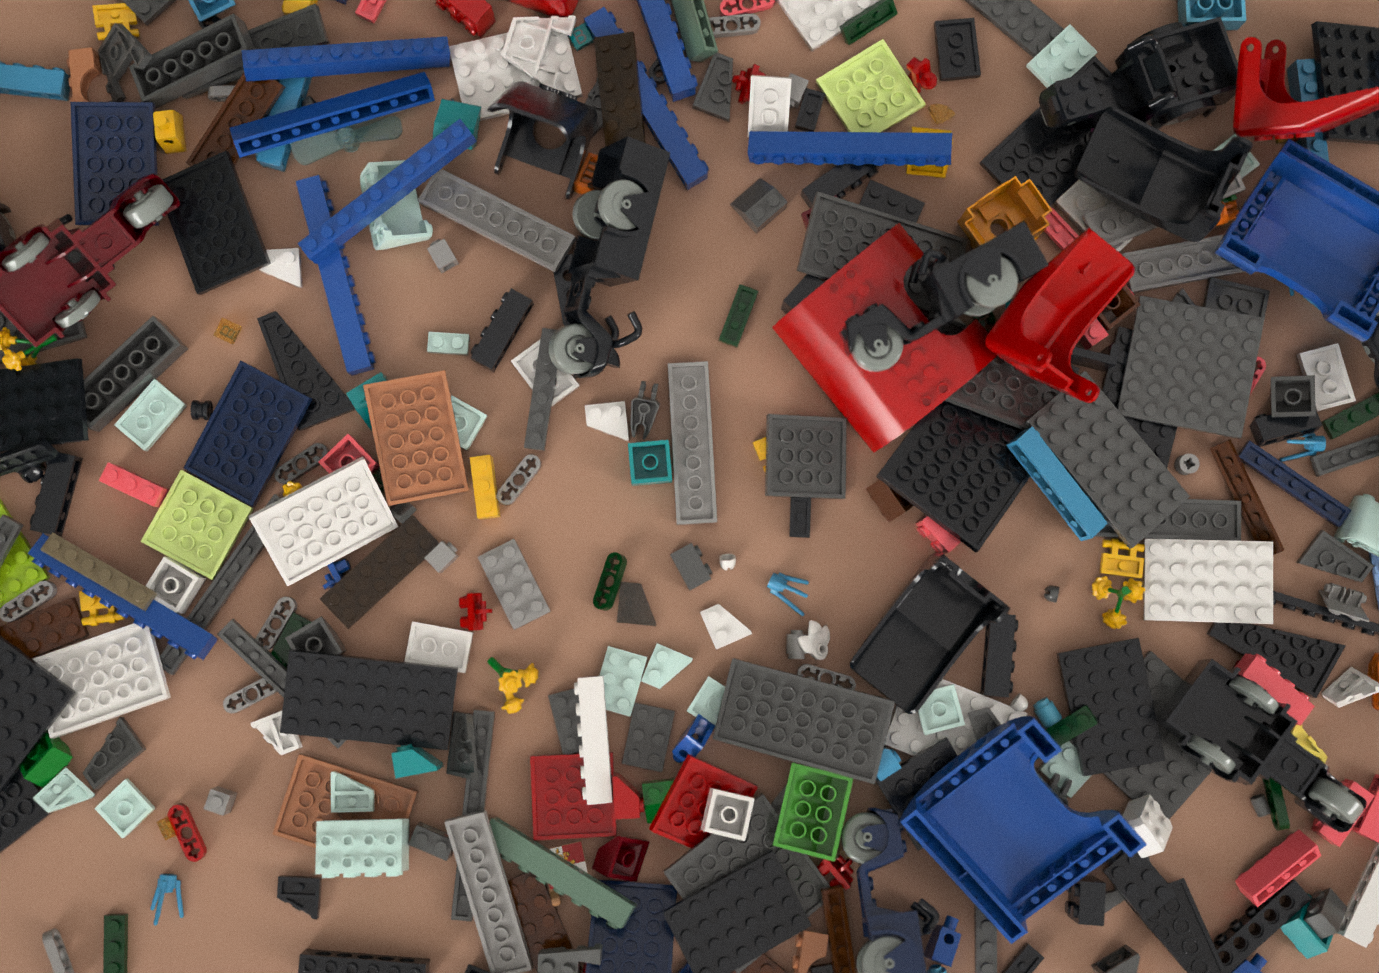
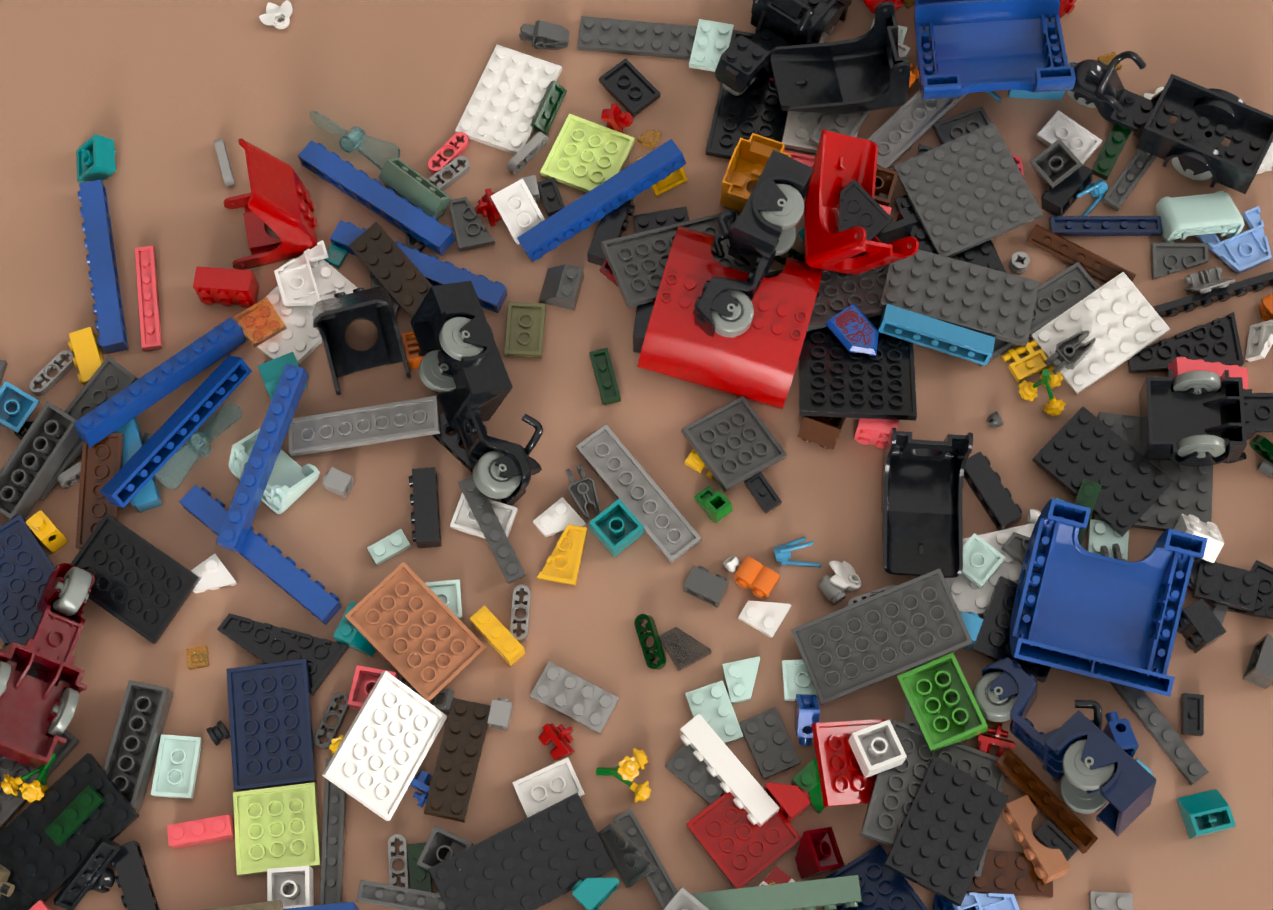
camera: 30 degrees left, 15 degrees down
(35, 404) = (74, 815): none -> dark green plate
(470, 59) = (260, 322): none -> clear orange plate
(589, 459) = (566, 558): none -> yellow wing
(698, 223) = (525, 329): none -> olive plate
(739, 589) = (756, 577): none -> orange brick
(749, 499) = (714, 504): none -> green brick
(818, 52) = (527, 153): none -> light grey beam
(985, 431) = (854, 331): none -> blue tile
(1068, 328) = (861, 210): none -> black plate
(1165, 583) = (1071, 352): none -> dark grey hinge

